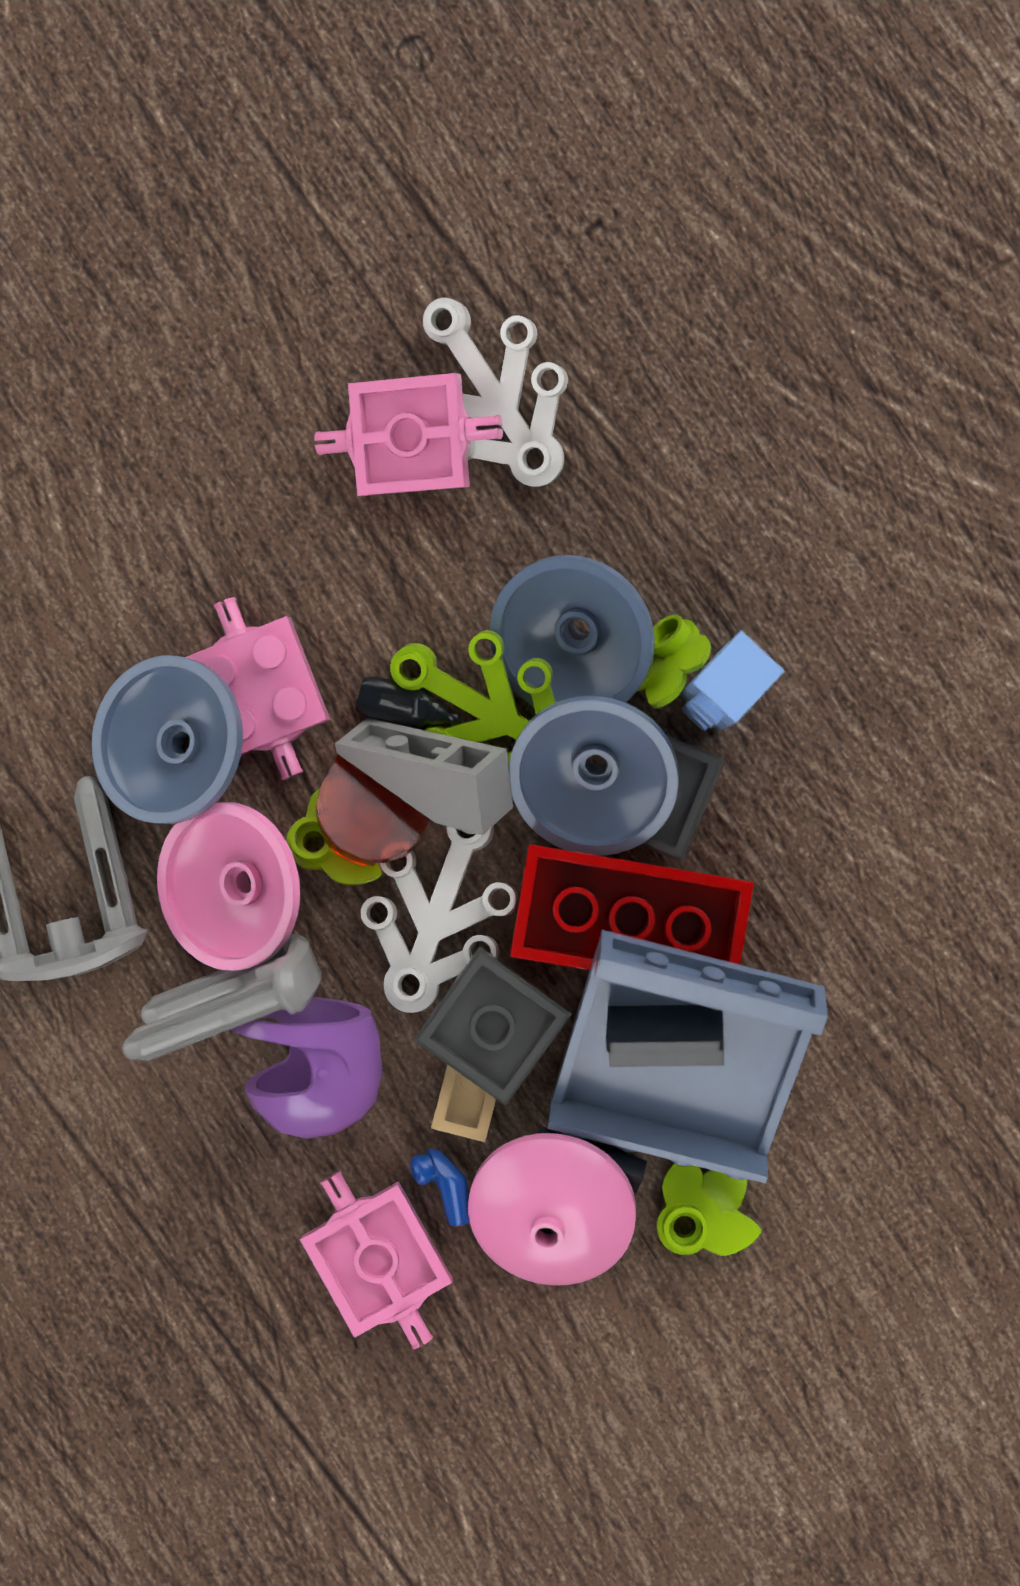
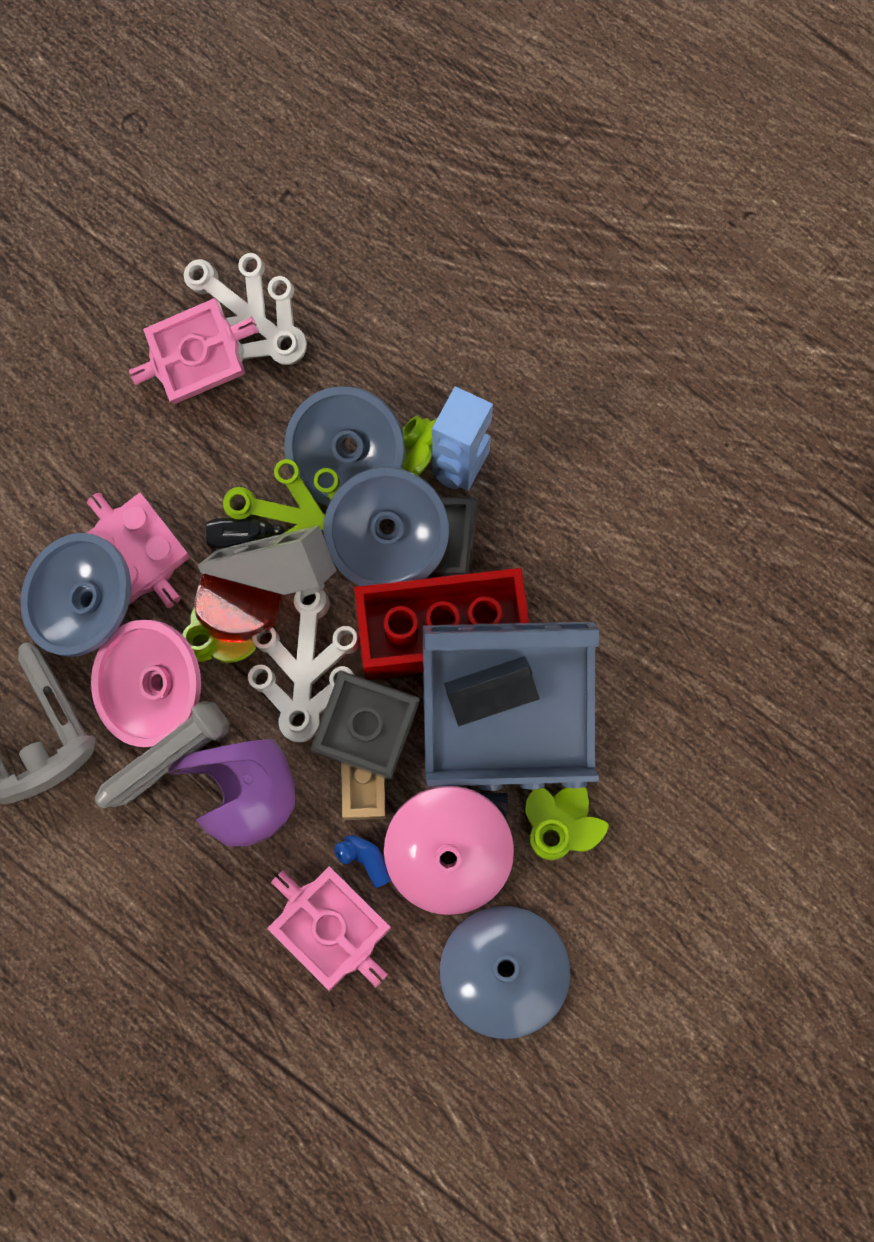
camera: 15 degrees left, 15 degrees down
(567, 1334) = (499, 1004): none -> sand blue dish

